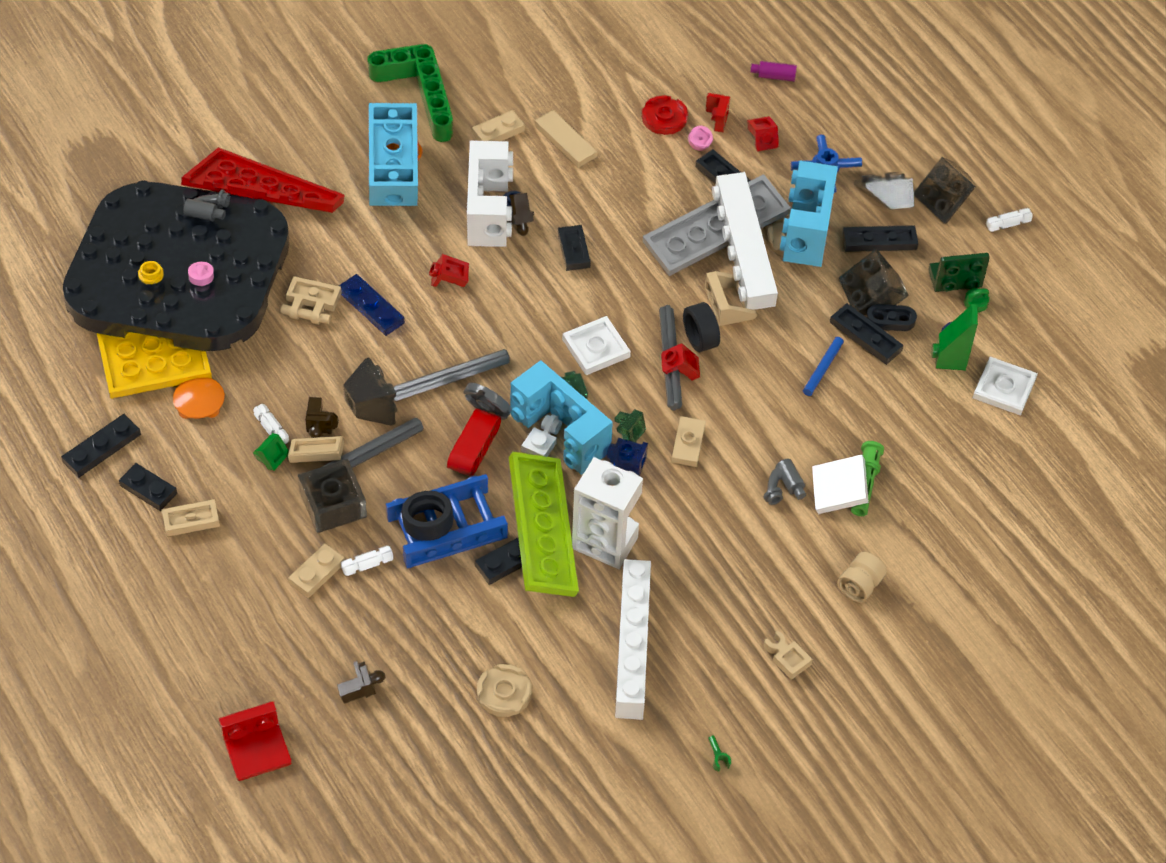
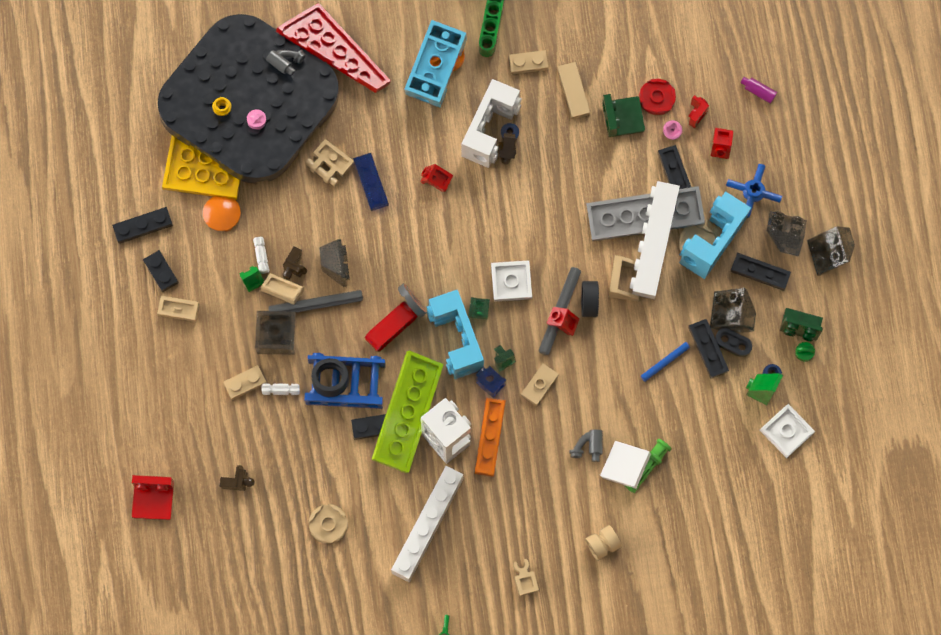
camera: 25 degrees right, 20 degrees up
(451, 374) = (400, 263): axle -> none
(540, 441) = (437, 344): white plate -> none
(574, 247) = (534, 191): black plate -> none
(635, 143) = (622, 116): none -> dark green bracket
(660, 522) = (490, 437): none -> orange tile
(1009, 219) = (866, 292): white axle -> none

